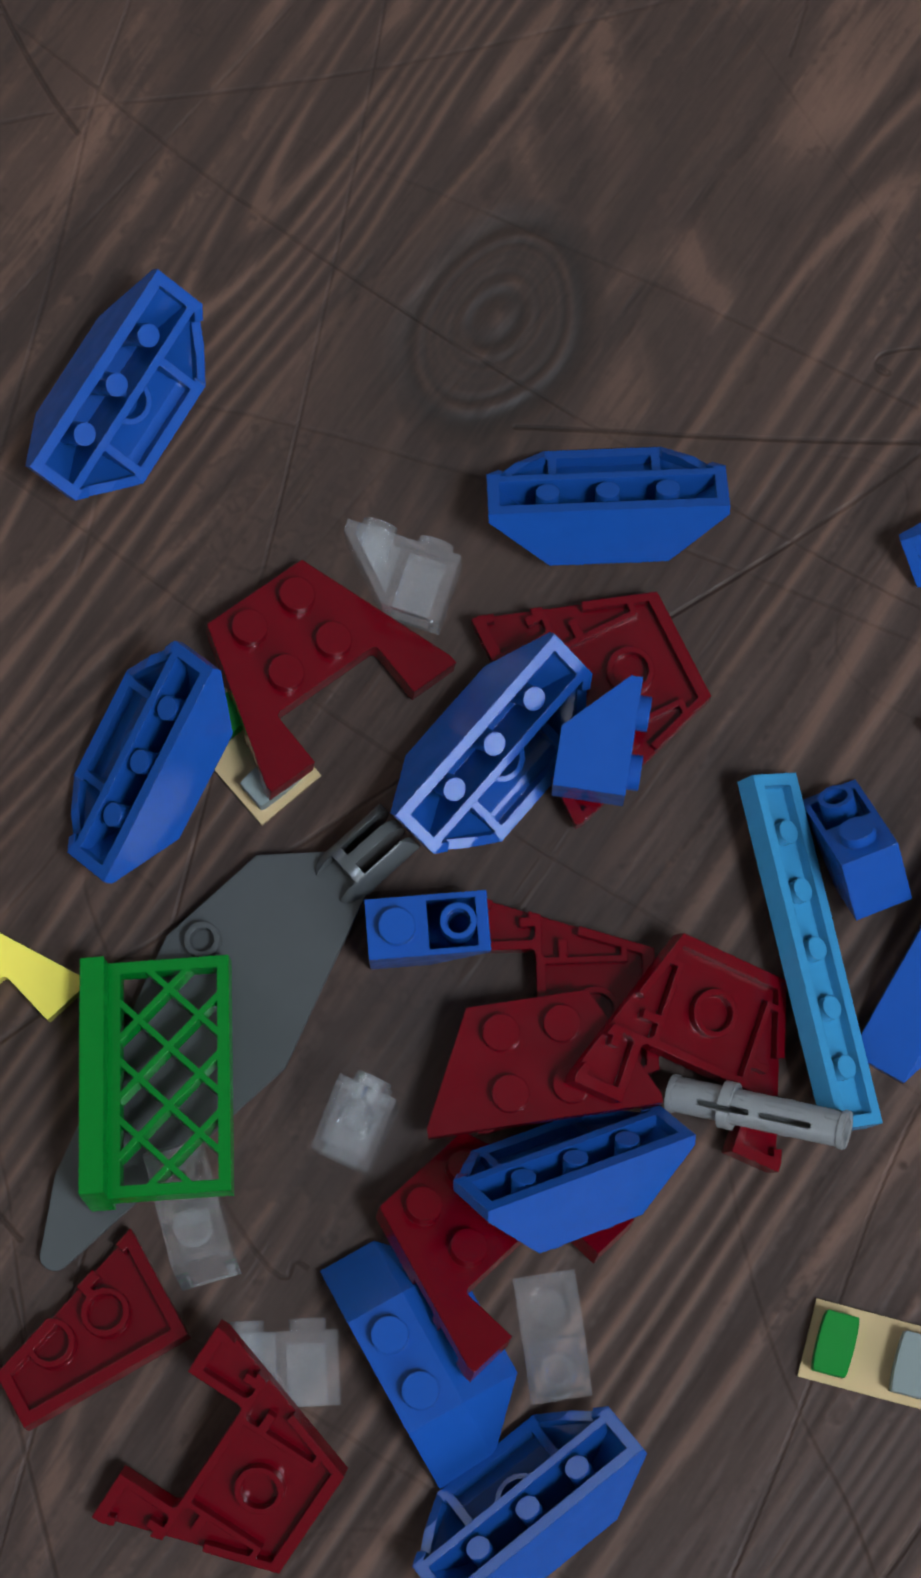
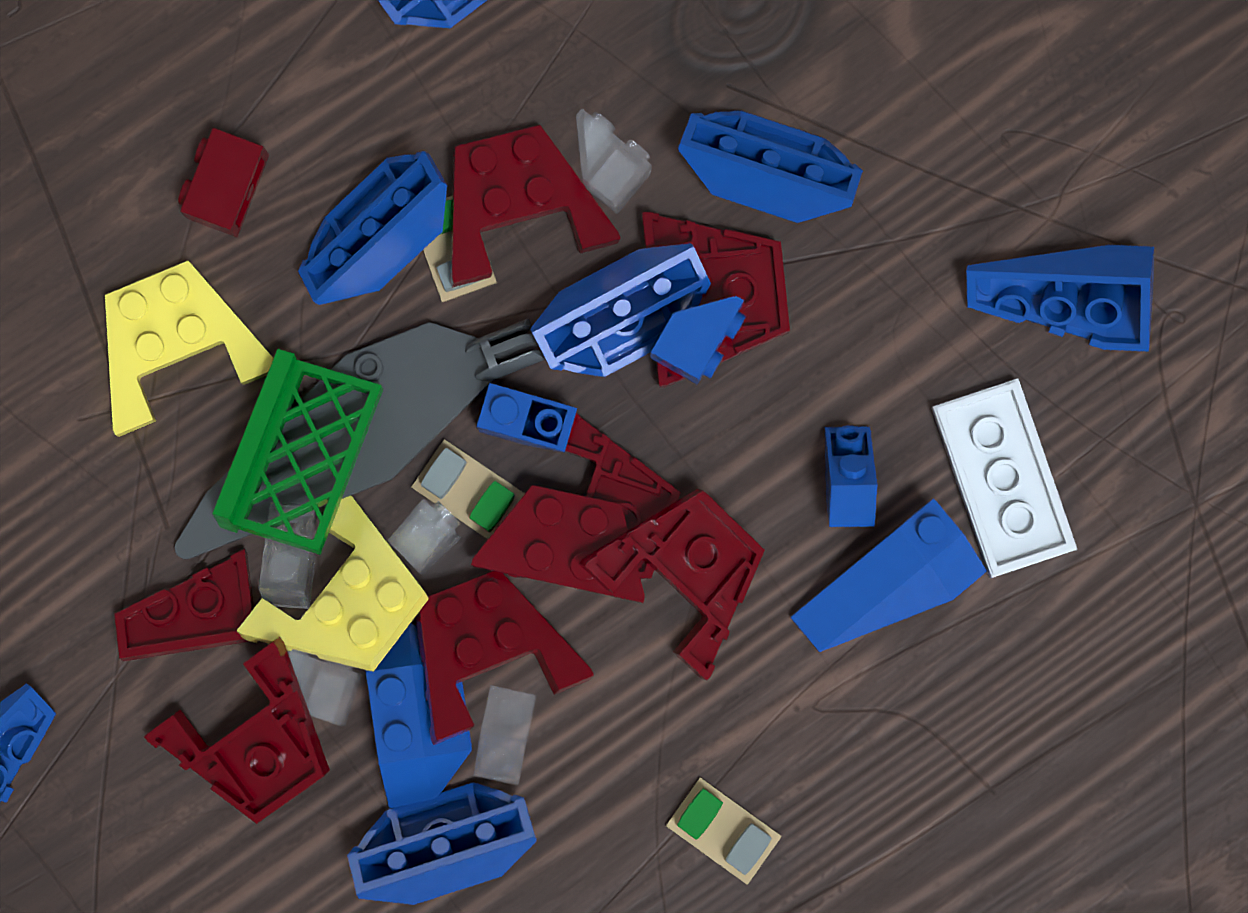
camera: 20 degrees right, 5 degrees up
(308, 1247) = (360, 607): none -> light yellow wing
(386, 1043) = (467, 489): none -> piece
(574, 1174) = (560, 629): blue wedge -> none
(732, 1106) = (692, 624): light grey pin -> none
(808, 946) = (788, 536): dark azure plate -> none

